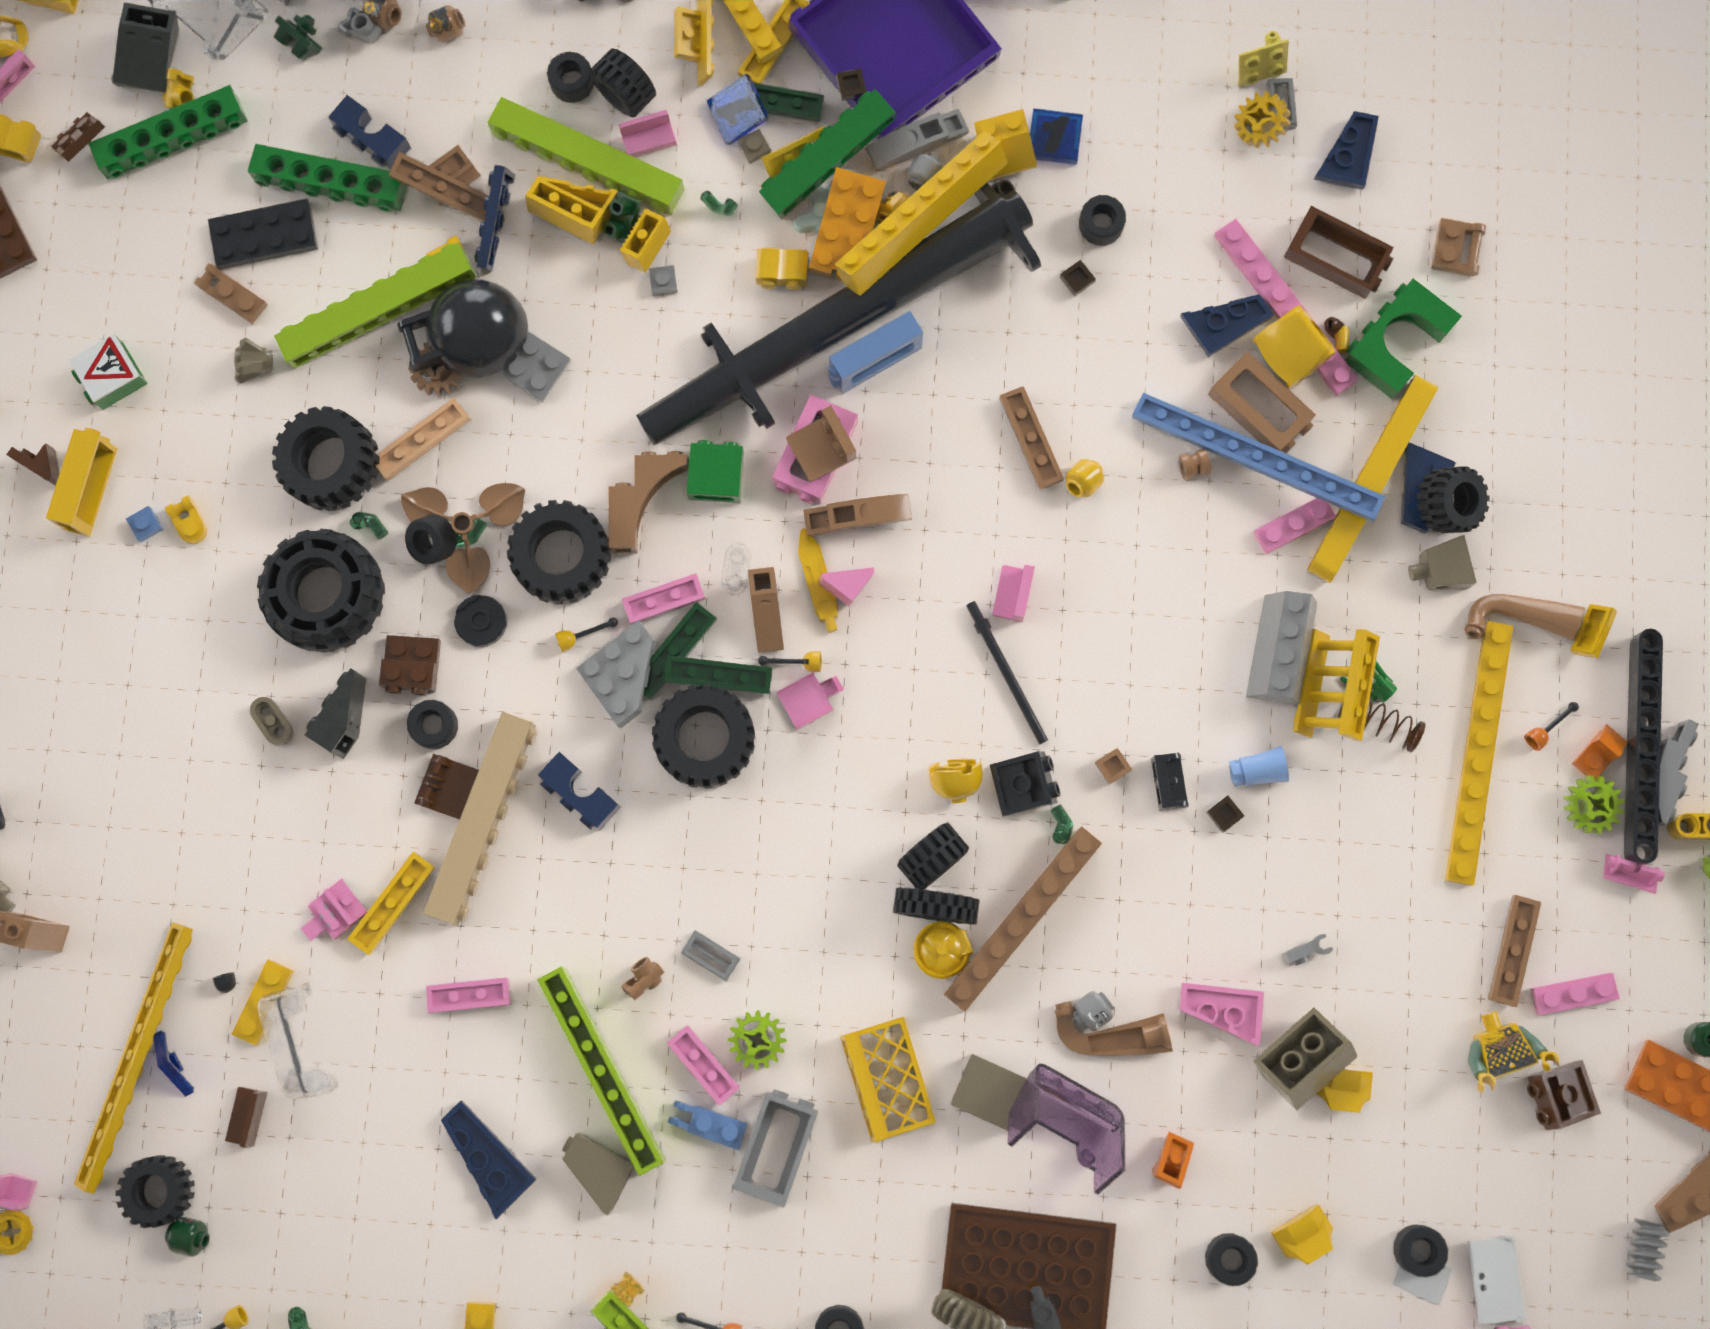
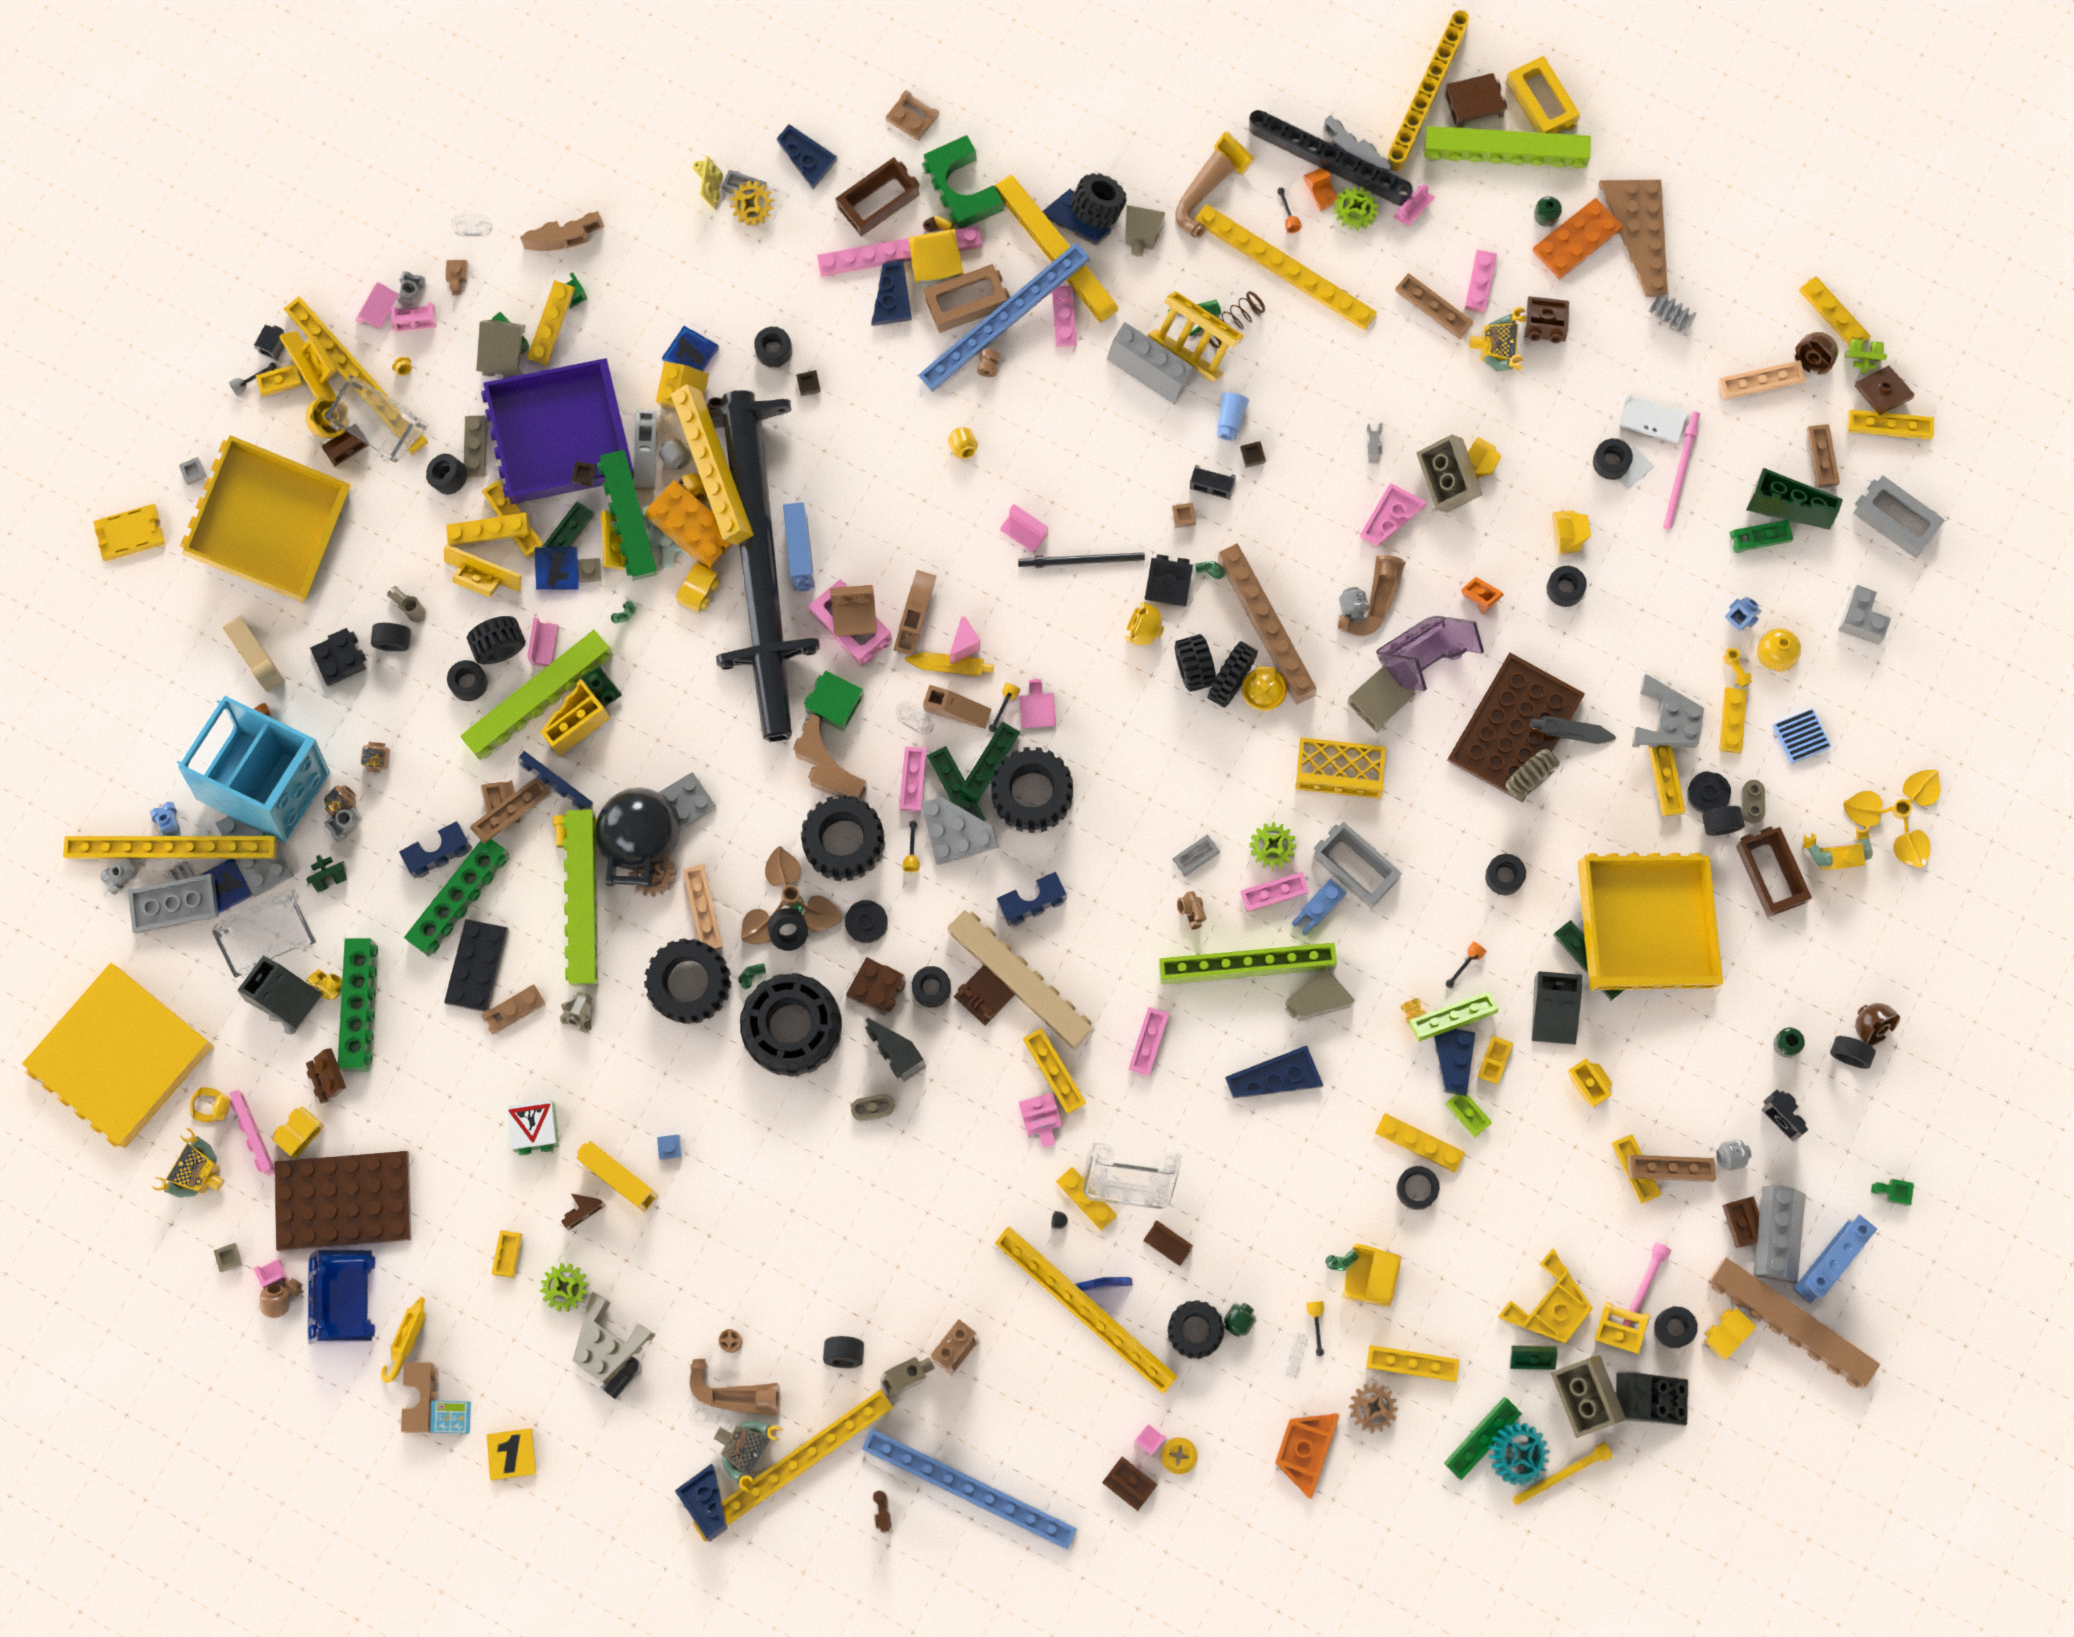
camera: 65 degrees left, 5 degrees down
(191, 528) = (690, 1112): yellow plate -> none
(645, 240) = (628, 676): yellow brick -> none
(663, 280) = (663, 679): light grey plate -> none
(1031, 438) = (914, 467): medium nougat plate -> none

